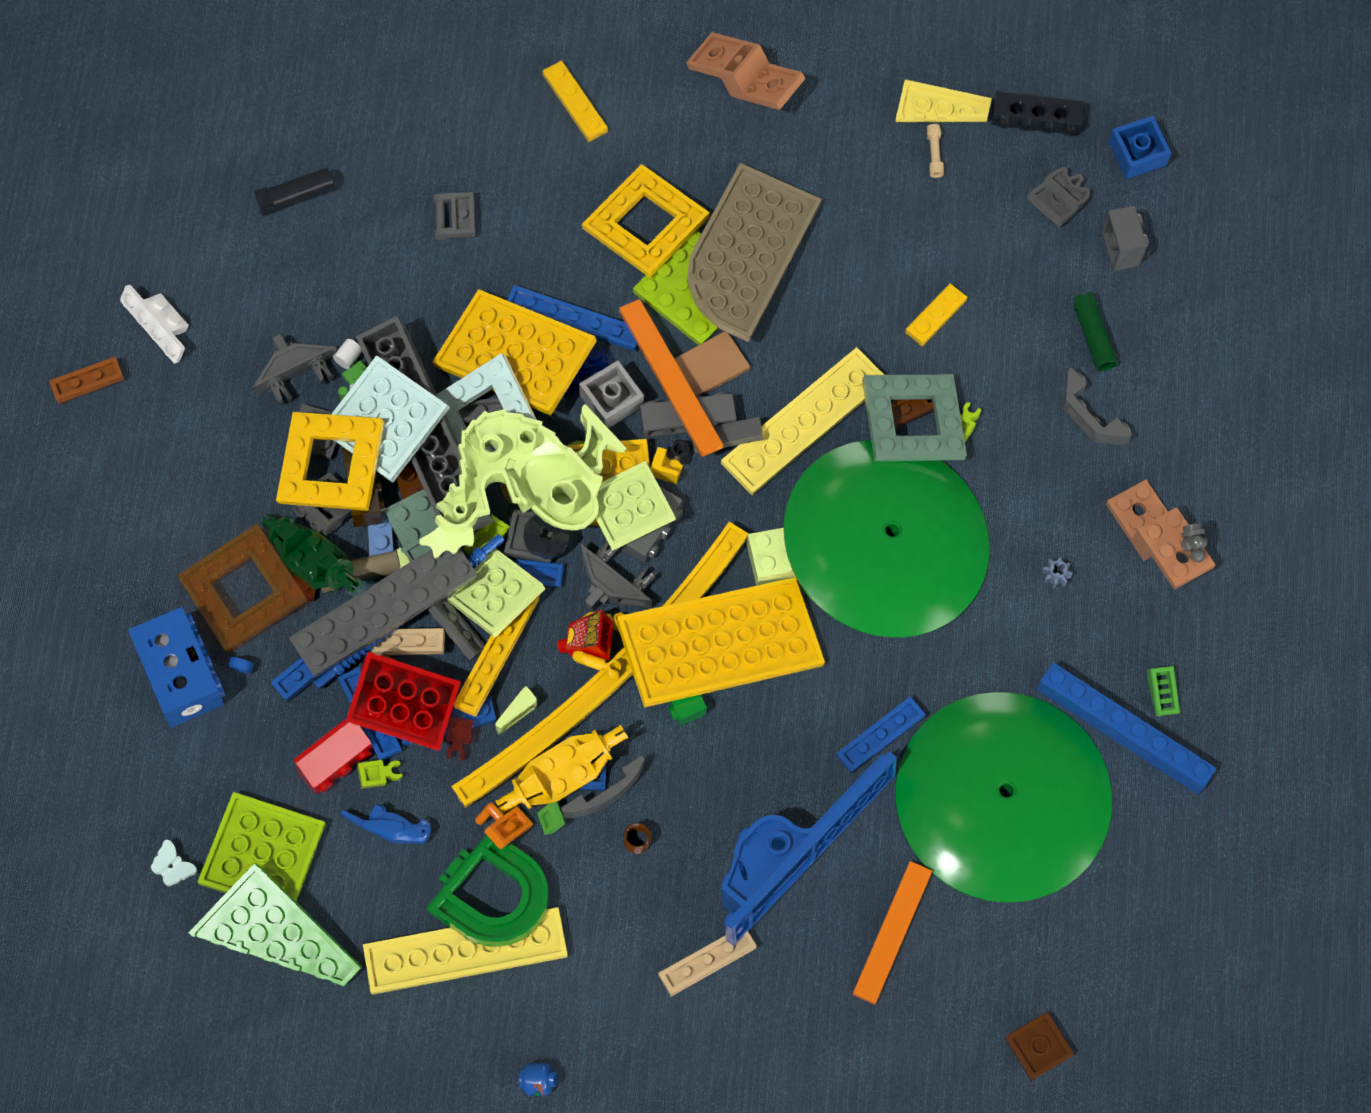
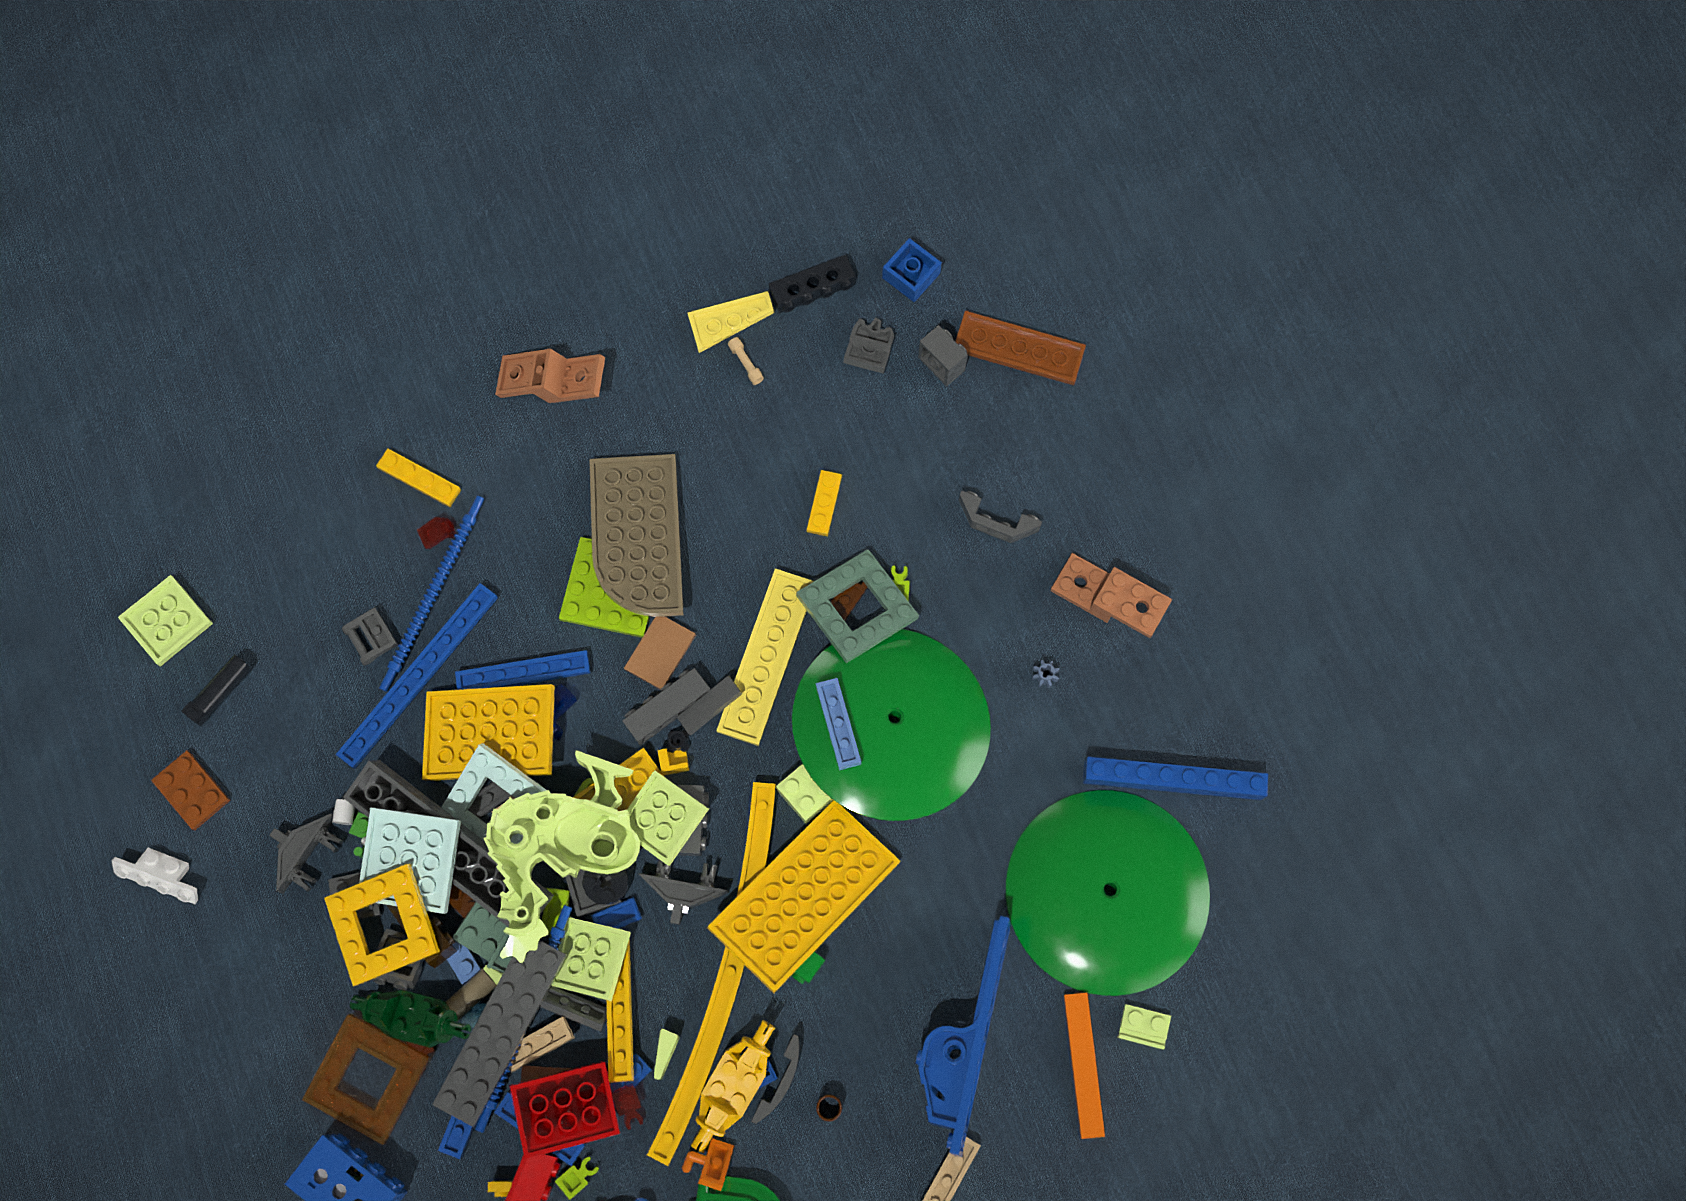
camera: 25 degrees left, 5 degrees up
(86, 380) = (123, 964): dark orange plate -> none
(224, 265) = (190, 790): none -> dark orange plate
(240, 665) = (403, 1149): blue tile -> none
(282, 108) = (165, 620): none -> yellowish green plate
(304, 740) = (499, 1188): none -> yellow plate
(462, 253) = (395, 665): none -> blue hose
(478, 271) = (416, 676): none -> blue plate
(551, 818) = (747, 1132): bright green plate -> none
(564, 155) = (436, 531): none -> clear red bracket
(591, 640) = (694, 955): torso -> none
(611, 394) = (592, 725): light grey brick -> none
(643, 182) = (555, 586): yellow plate -> none
(671, 378) = (635, 683): orange tile -> none
(836, 505) = (838, 724): none -> medium blue plate
(880, 735) = (980, 897): blue plate -> none
(968, 930) = (1144, 1026): none -> yellowish green plate
(1039, 1046) = (1256, 1095): reddish brown plate -> none
(1094, 332) = (962, 448): dark green piece -> none
(1172, 689) = (1179, 731): bright green slope -> none
(1194, 541) = (1146, 590): dark grey piece -> none
(1204, 271) = (1020, 348): none -> dark orange plate

